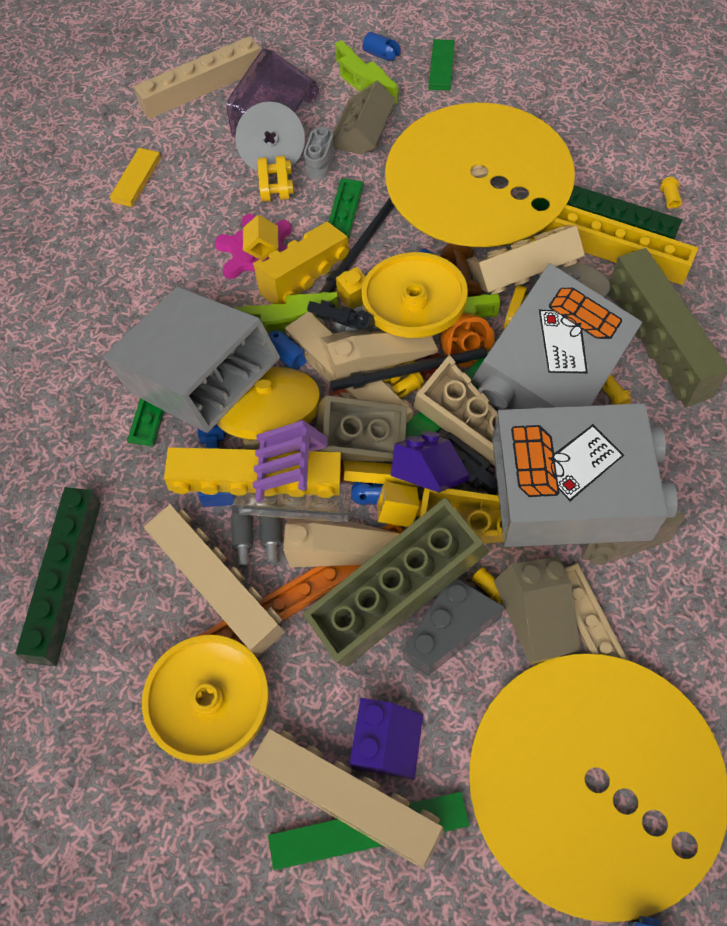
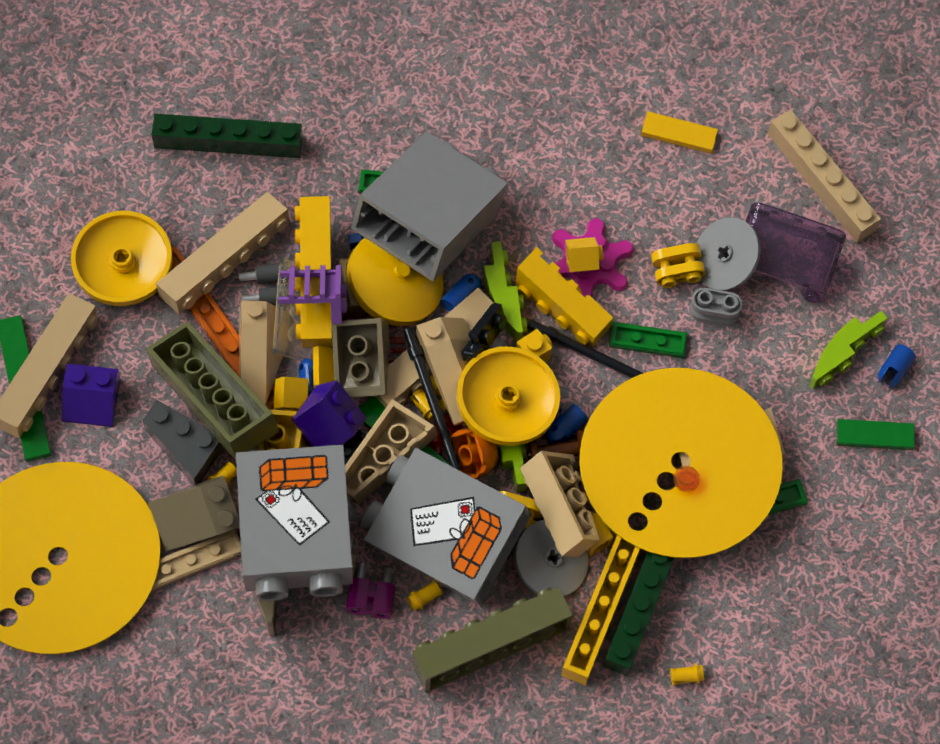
camera: 80 degrees right, 5 degrees up
(363, 119) = (770, 349): dark tan slope -> none
(500, 163) = (686, 479): none -> clear orange plate

